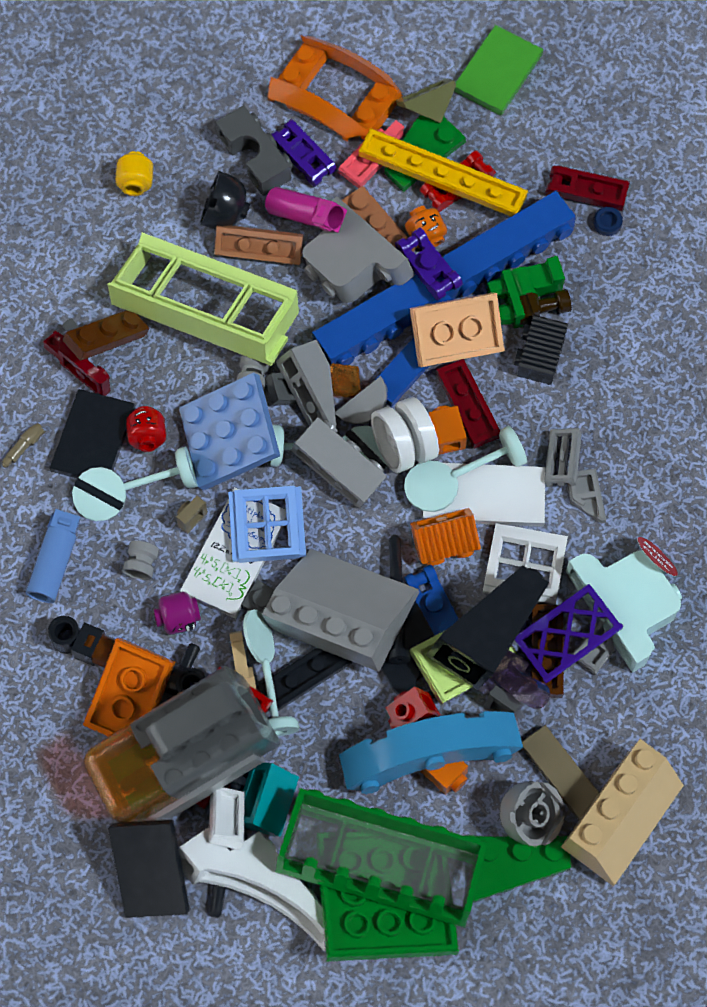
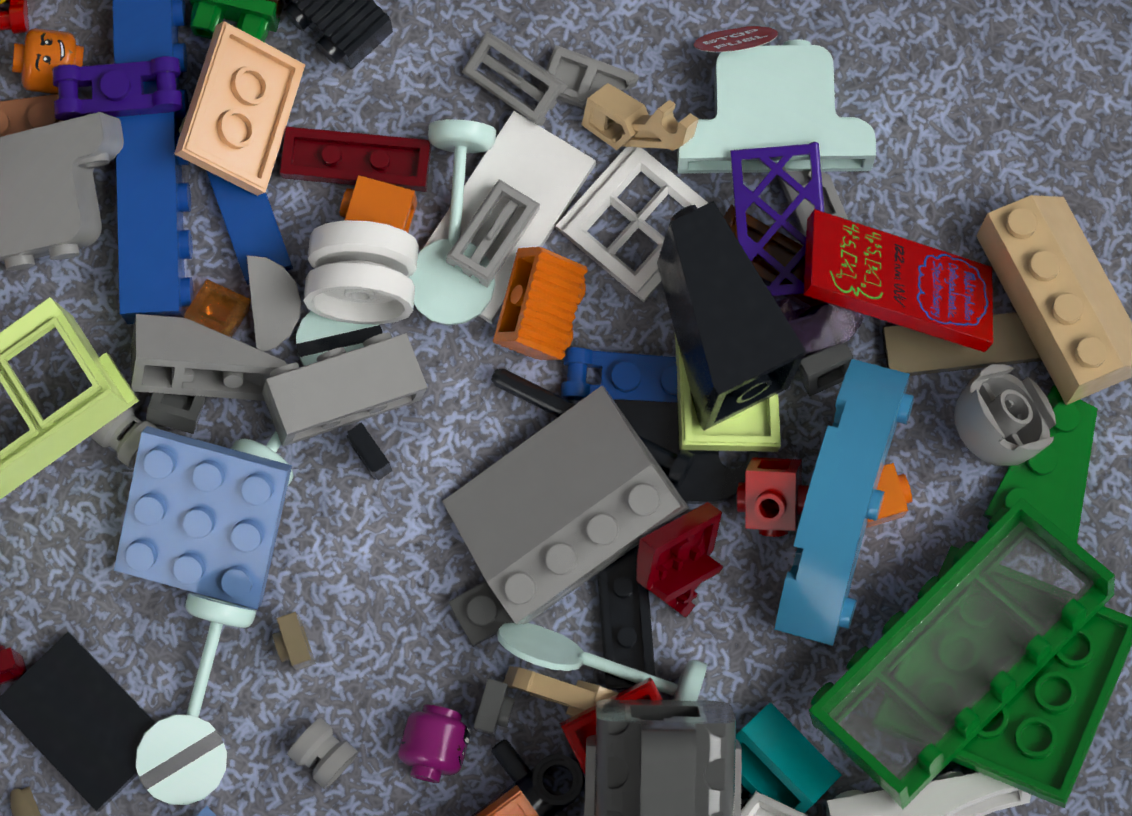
camera: 60 degrees left, 10 degrees up
(146, 429) = (121, 636): red head -> none
(212, 632) = (494, 708): none -> dark grey plate
(214, 576) = (386, 611): white tile -> none
(294, 523) = (355, 582): light blue piece -> none
(313, 495) = (368, 452): none -> black tile
(348, 682) = (678, 557): none -> dark red slope
(445, 478) = (471, 265): none -> light grey tile
(572, 713) = (898, 281): none -> red tile
(573, 525) = (626, 123): none -> tan piece

